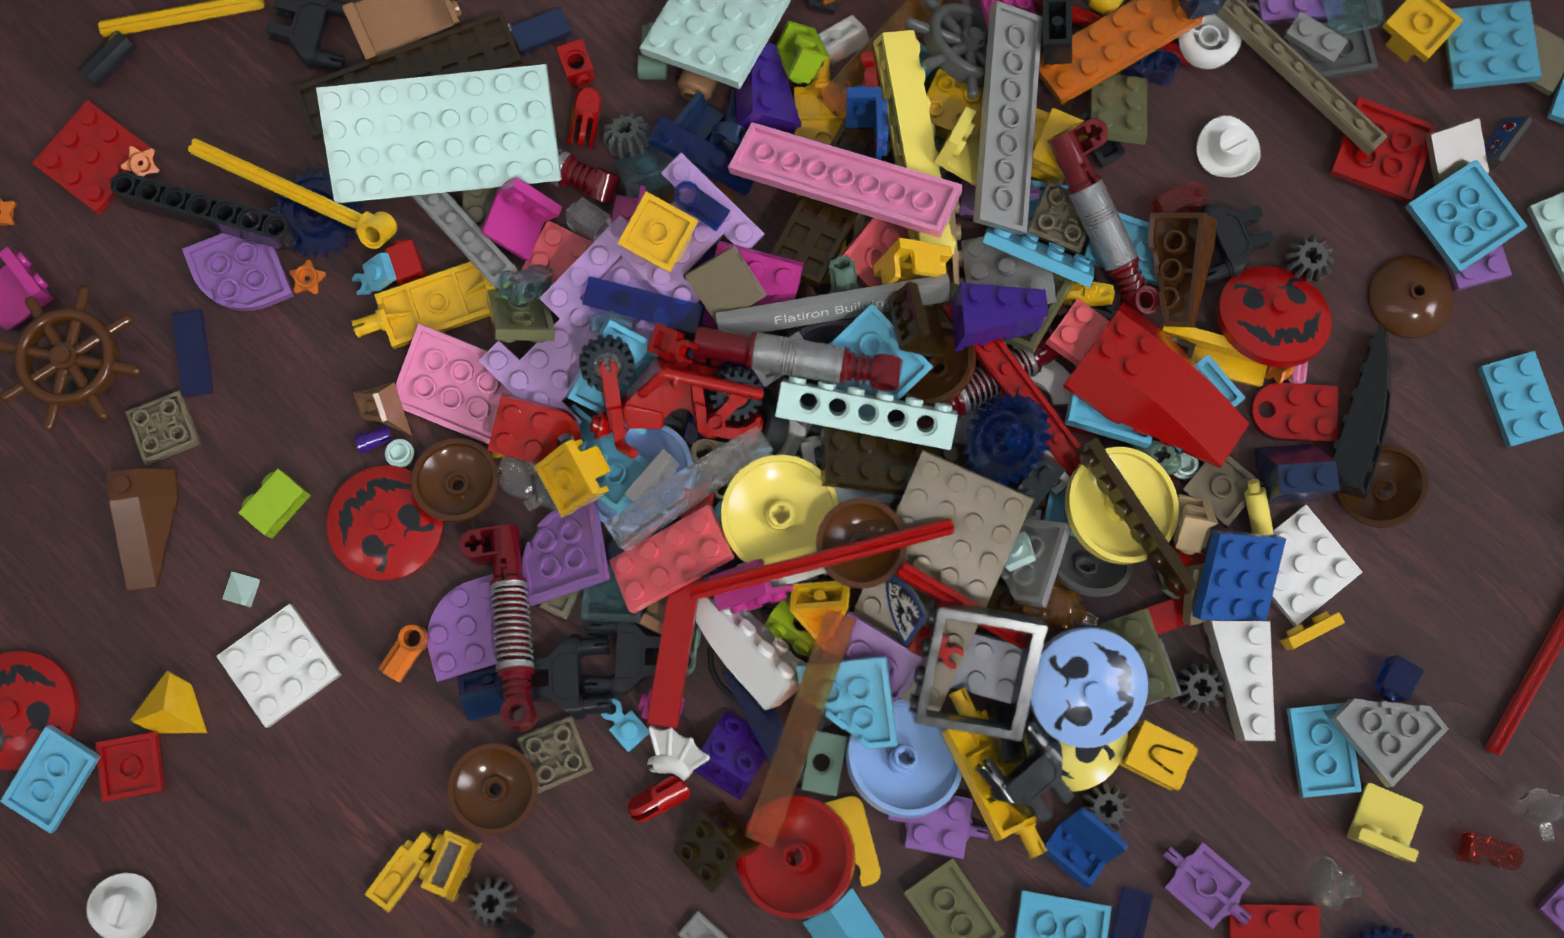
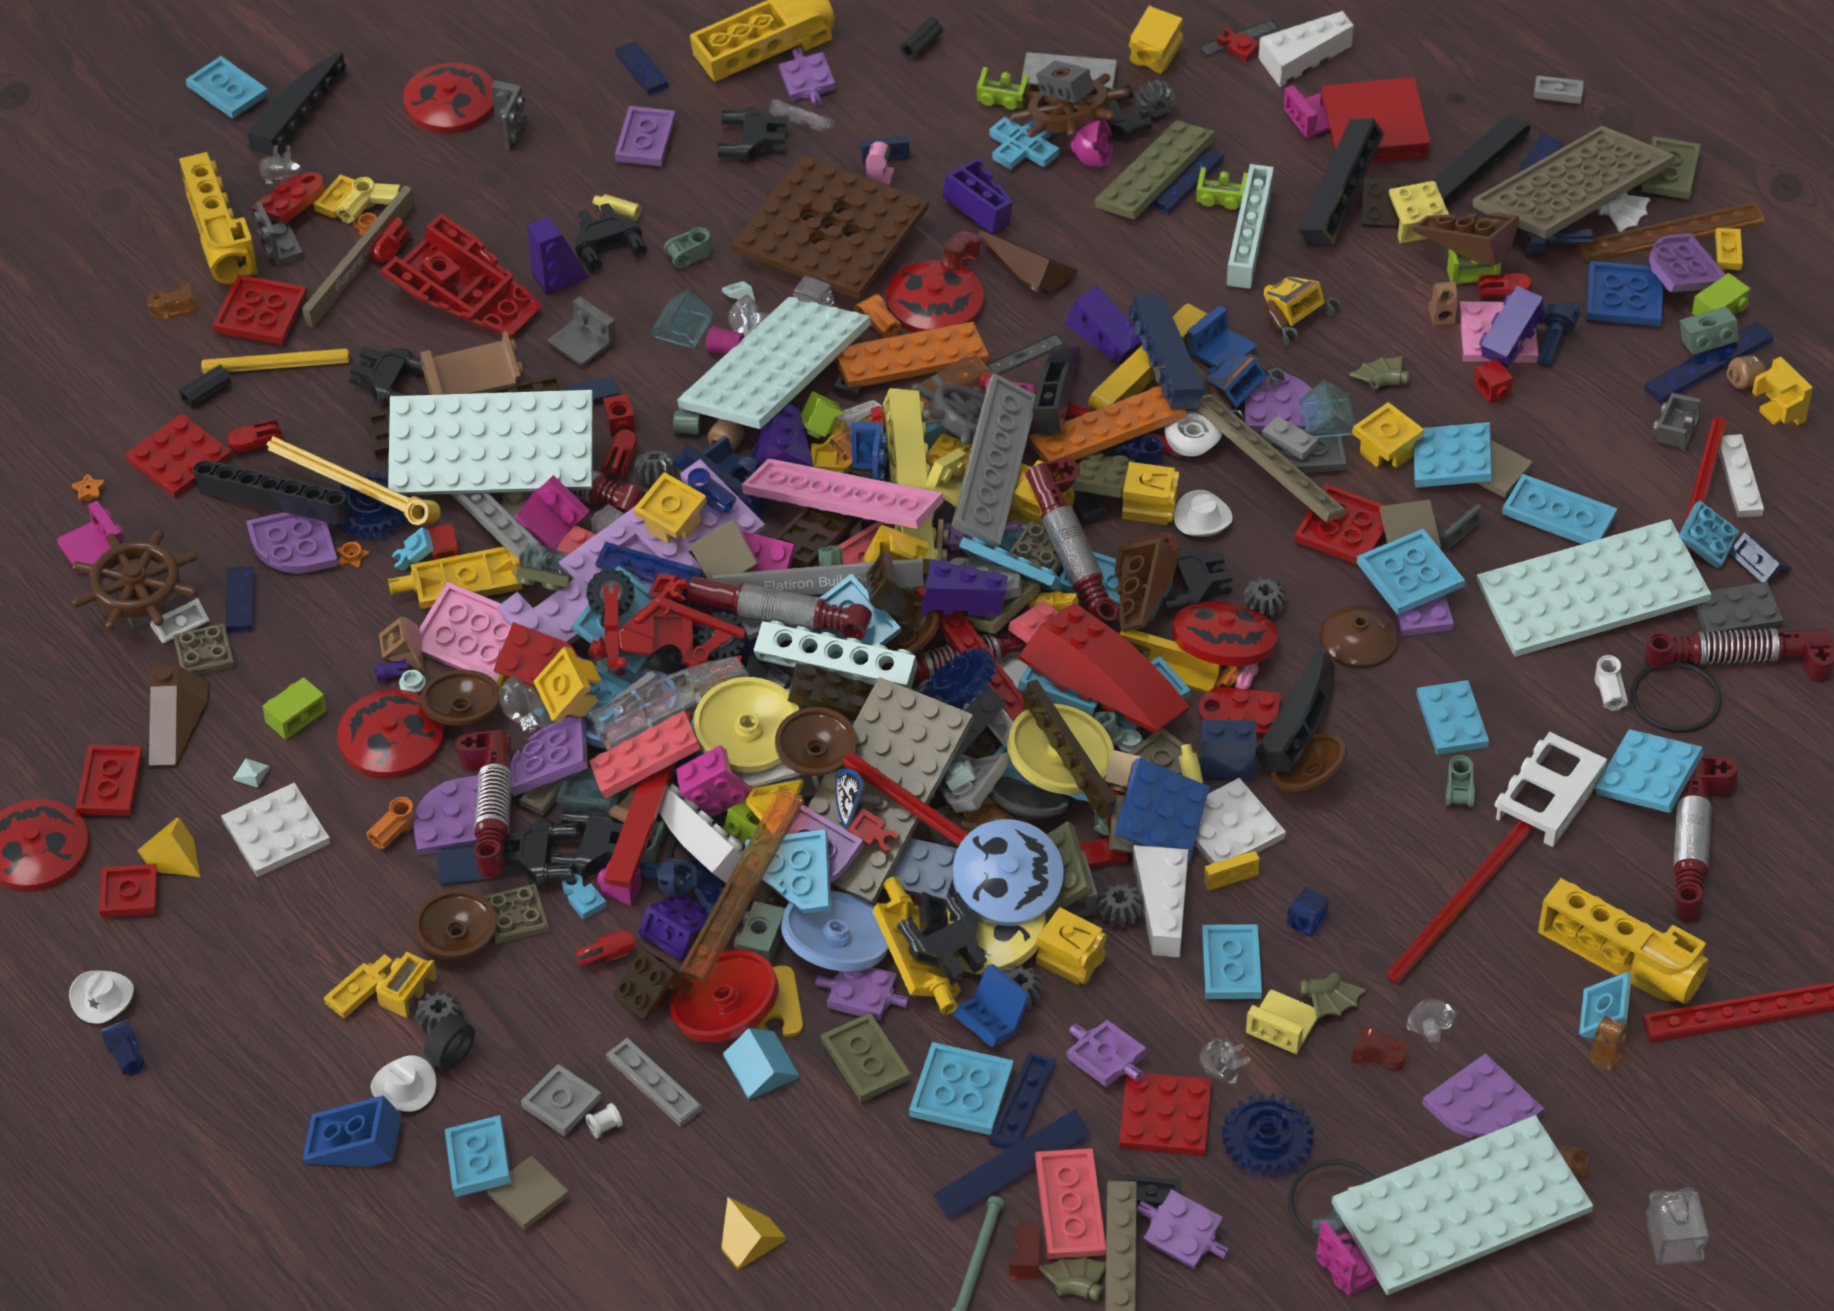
camera: 10 degrees right, 30 degrees down
(50, 778) = (57, 889): medium azure plate -> none
(85, 618) = (109, 780): none -> red plate
(131, 390) = (181, 620): none -> white slope
(144, 156) = (217, 452): orange plate -> none
(174, 127) = (253, 436): none -> red arm
(674, 753) = (625, 910): white arm -> none
(721, 708) = (671, 876): none -> dark blue piece
(821, 559) = (777, 744): red axle -> none
(1025, 679) = (891, 890): window -> none
(1174, 129) = (1150, 493): none -> yellow piece
(1389, 734) = (1291, 948): light grey plate -> none
(1432, 783) = (1331, 994): none -> olive arm
(1540, 494) = (1460, 785): none -> sand green piece

